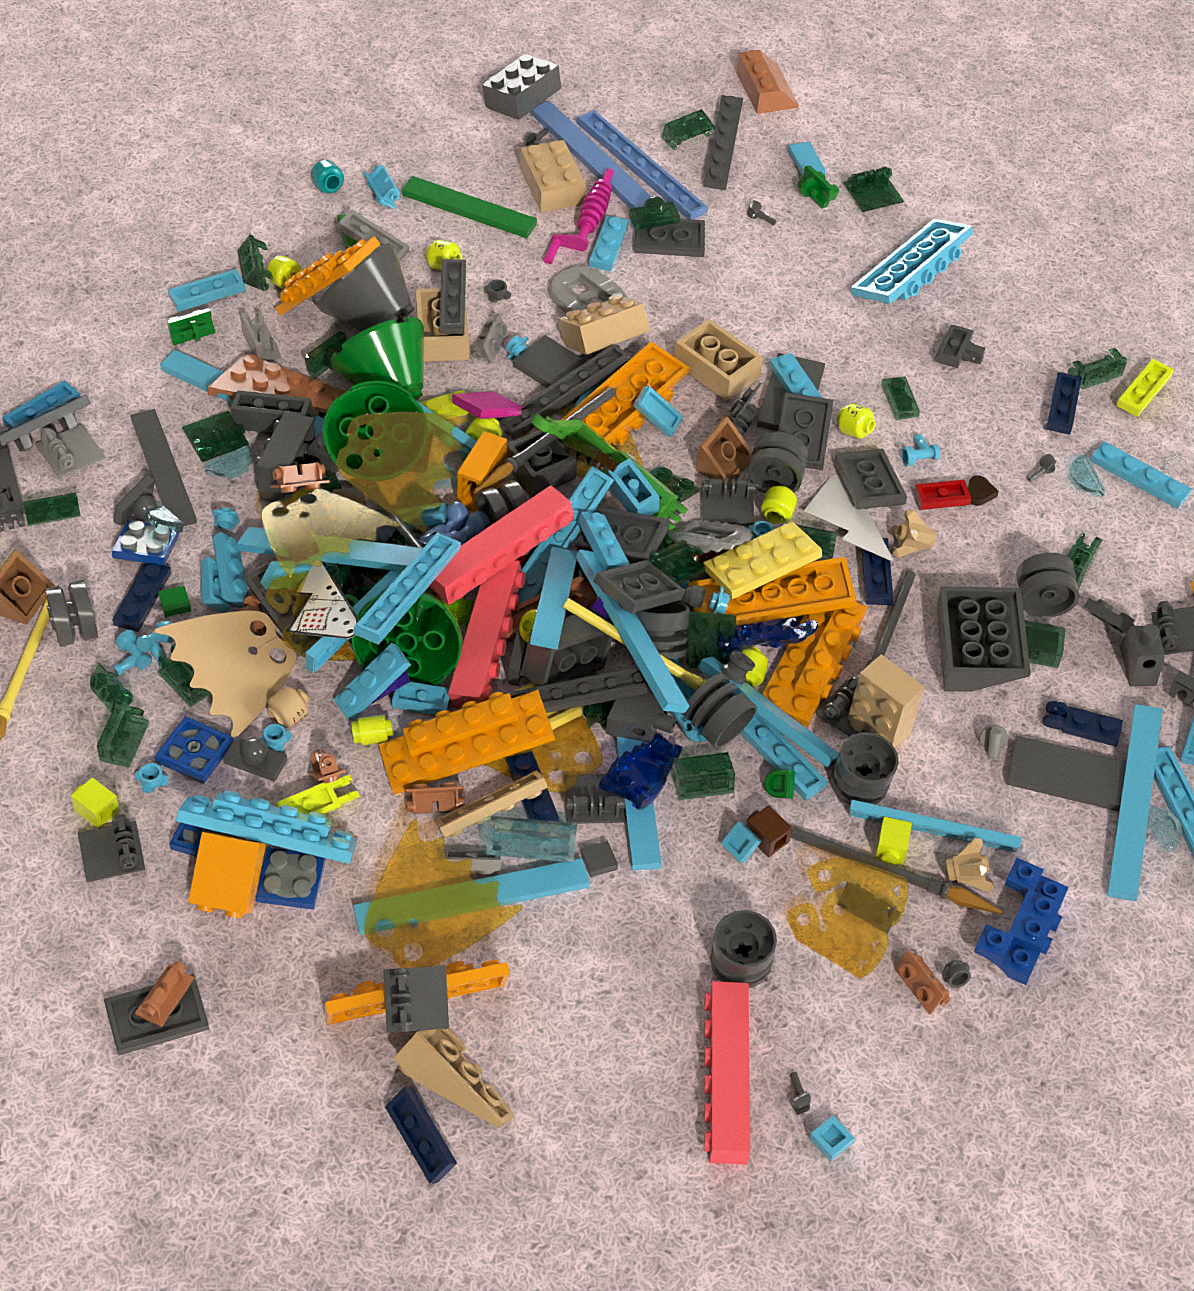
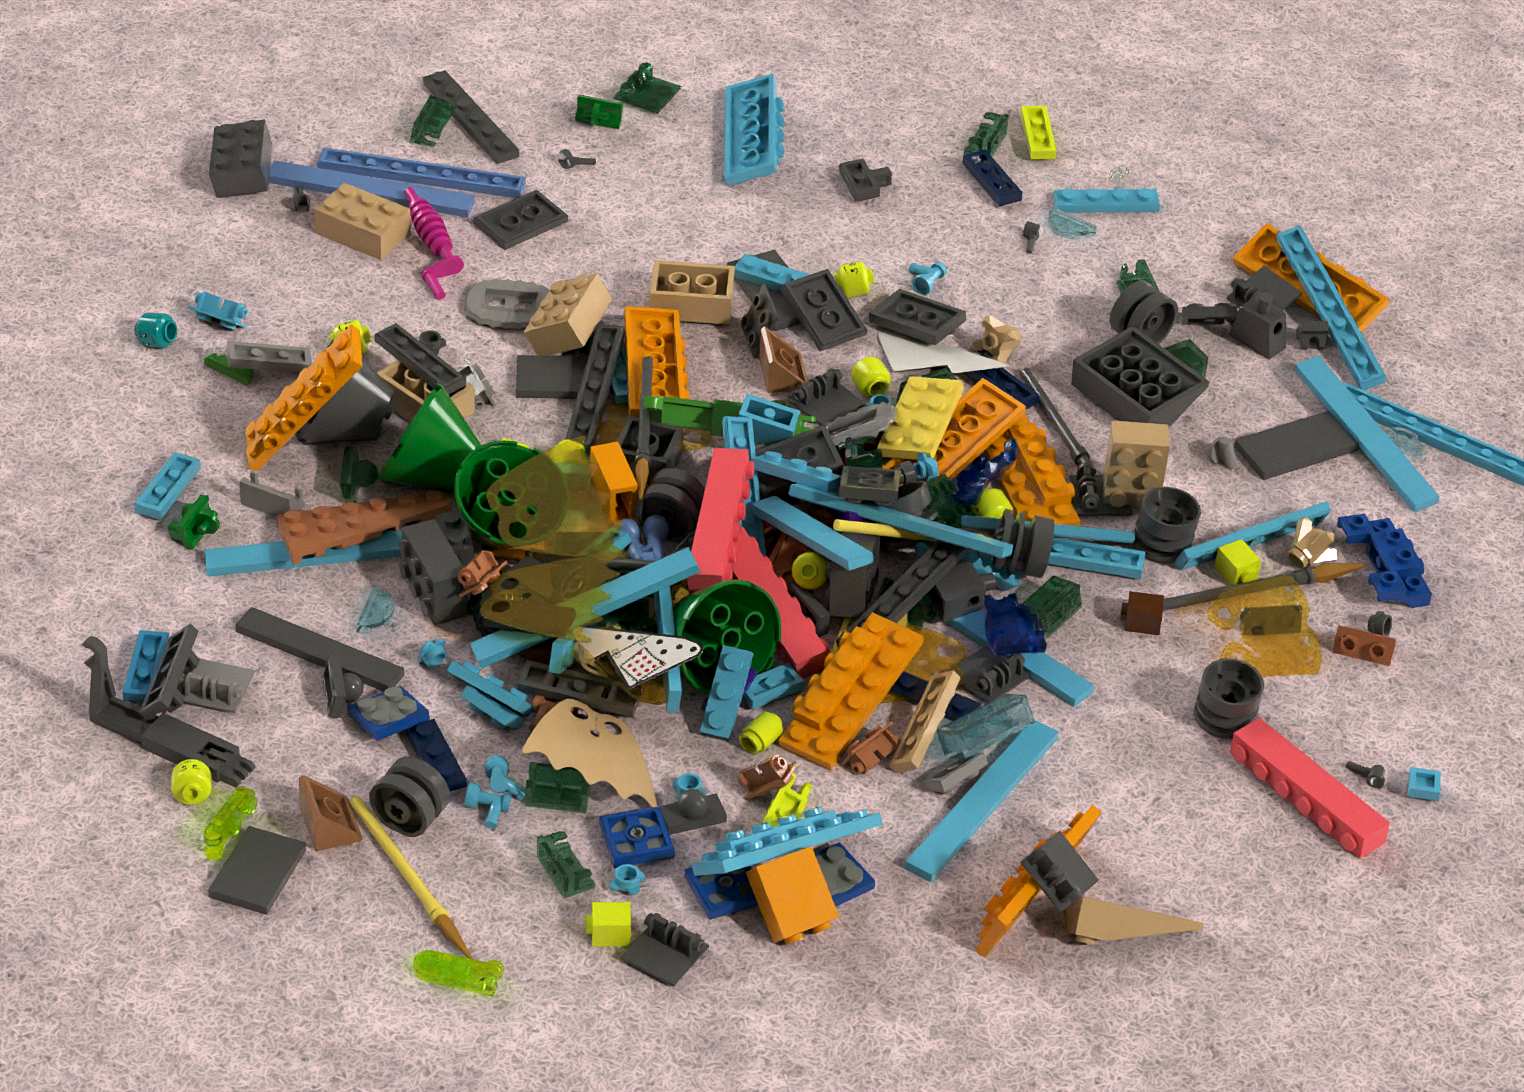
camera: 40 degrees left, 10 degrees down
(51, 509) = (266, 737): clear green hinge -> none
(109, 688) = (510, 835): clear green hinge -> none
(136, 1033) = (850, 1036): dark grey tile -> none
(161, 515) = (385, 682): clear light blue tile -> none
(165, 994) = (848, 1010): nougat hinge -> none
(174, 601) = (469, 743): green tile -> none
(215, 436) = (334, 596): clear green hinge -> none
(252, 264) = (188, 436): clear green hinge -> none
(261, 410) = (371, 544): dark grey brick -> none
(282, 269) = (224, 430): neon yellow head -> none
(288, 706) = (673, 757): tan head -> none
(406, 588) = (715, 581): medium azure tile -> none
(420, 1135) = (1150, 973): dark blue plate -> none
(438, 894) = (960, 809): clear yellow piece -> none
(469, 207) = (315, 288): green tile -> none
(486, 404) = (548, 433): dark pink tile -> none
(516, 346) = (507, 377): medium azure plate -> none
(589, 454) = (705, 411): dark brown plate -> none
(599, 859) = (1046, 711): dark grey tile -> none
(608, 243) = (476, 252): medium azure plate -> none
(654, 213) = (493, 205): clear green tile -> none
(658, 411) = (694, 358): medium azure tile -> none
(737, 667) = (995, 505): dark grey wheel -> none
(741, 842) = (1133, 633): medium azure plate -> none
(764, 82) = (447, 48): nougat slope -> none
(777, 461) = (840, 340): dark grey wheel -> none
(780, 783) = (1113, 575): green tile -> none
(805, 155) = (559, 94): medium azure tile -> none
(900, 398) = (862, 244): clear green plate -> none
(942, 494) = (983, 298): red plate -> none
(981, 490) = (1004, 280): dark brown tile -> none
(1083, 723) = (1269, 403): dark blue hinge -> none

